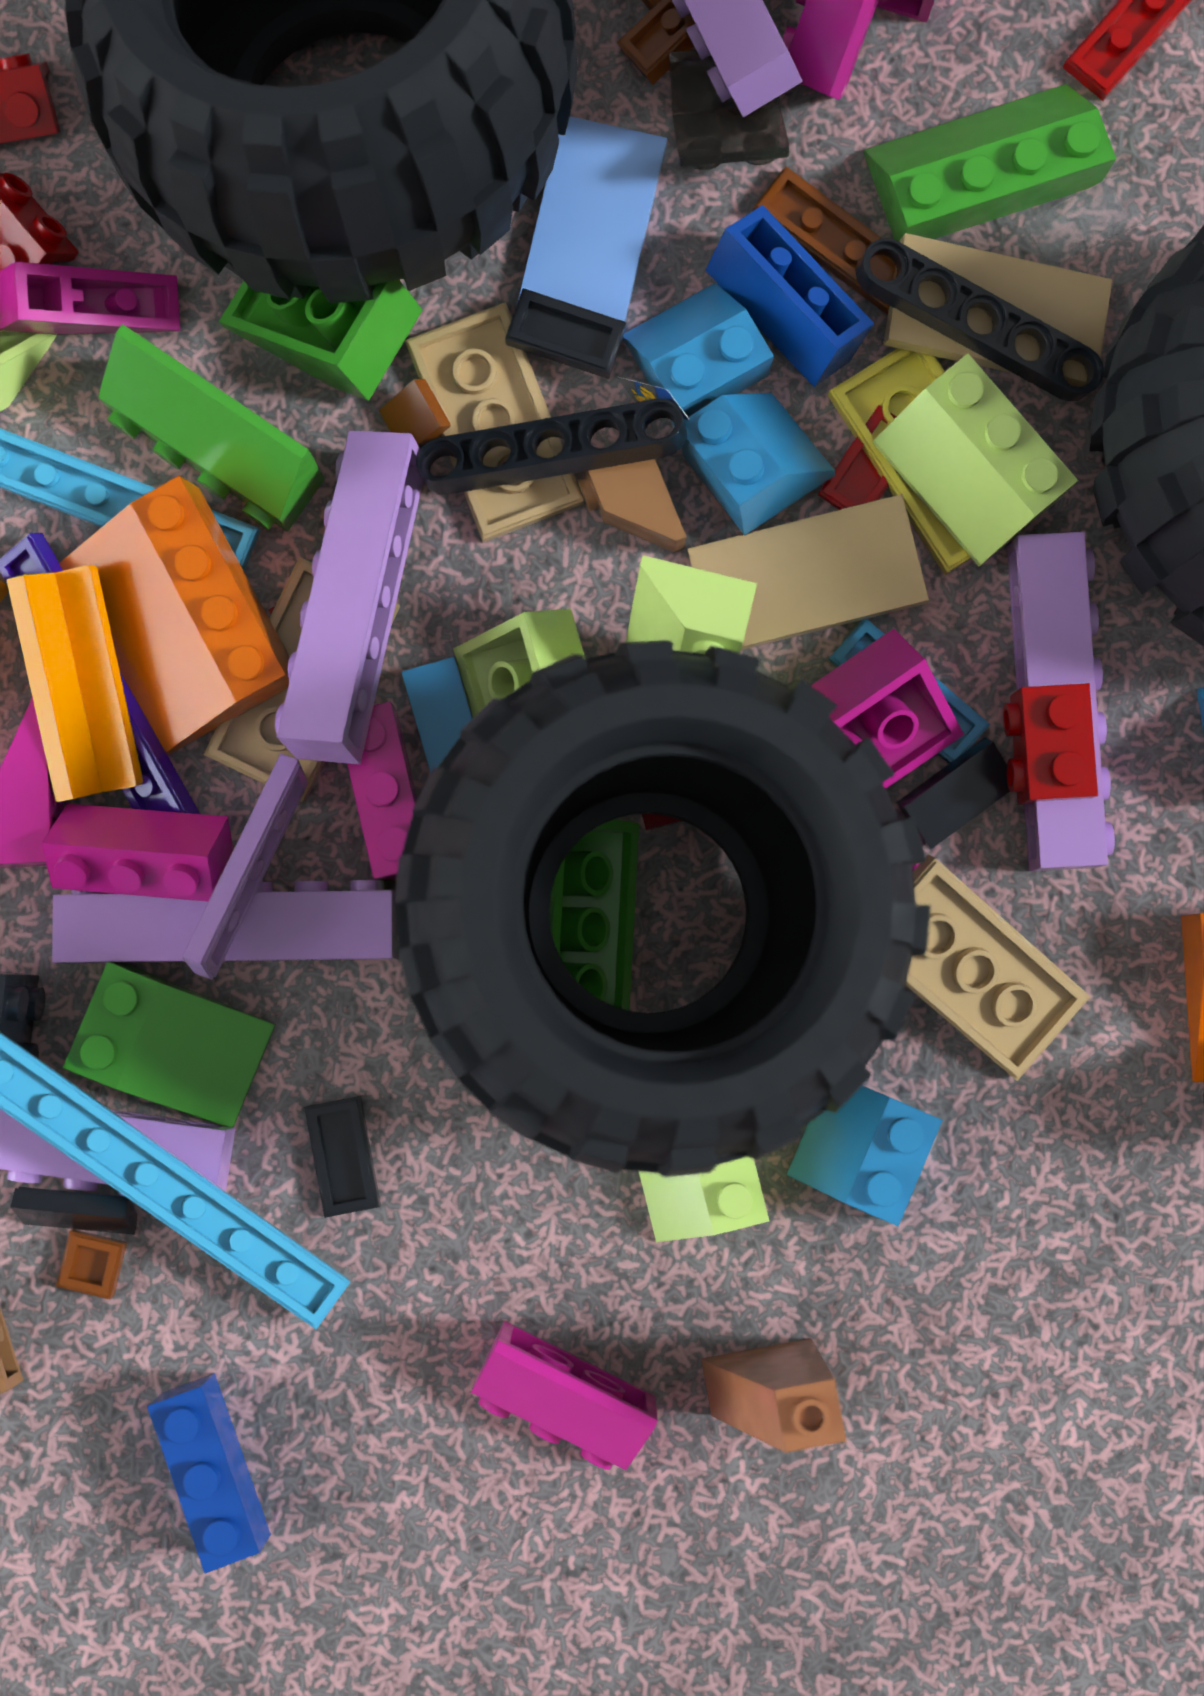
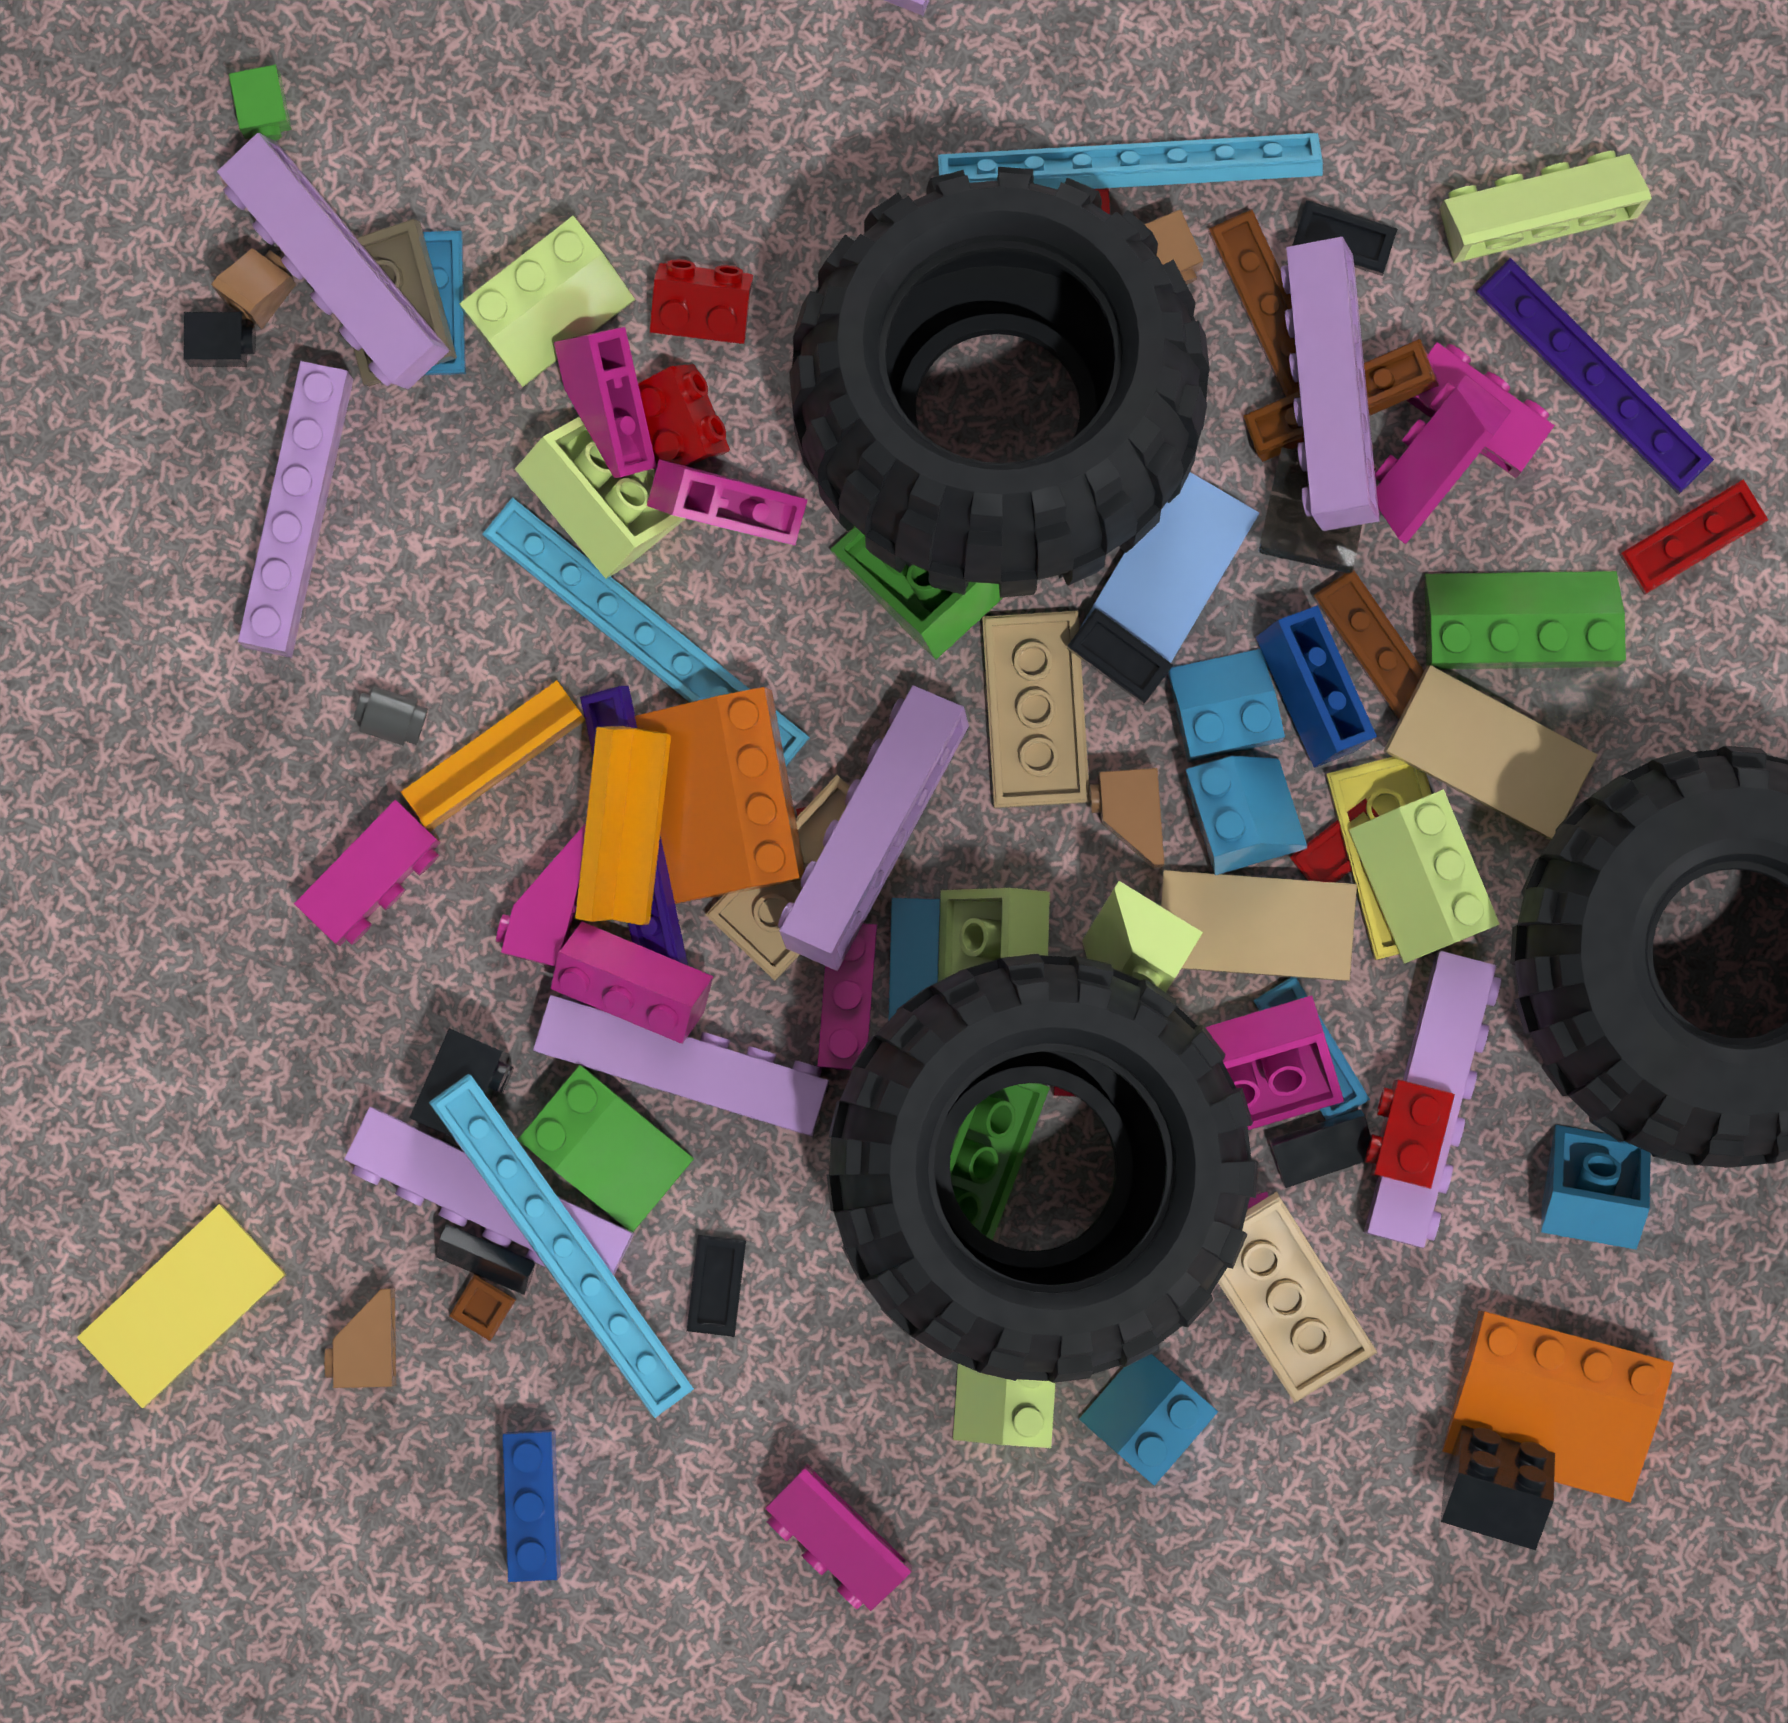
camera: 20 degrees right, 0 degrees up
(207, 431) = (795, 650): bright green slope -> none
(246, 868) = (718, 1024): lavender tile -> none
(416, 412) = (971, 685): dark orange tile -> none
(575, 457) = (1093, 769): black beam -> none
(644, 392) = (1174, 737): sticker -> none
(777, 1395) = (1008, 1583): nougat slope -> none
(952, 320) = (1445, 751): black beam -> none

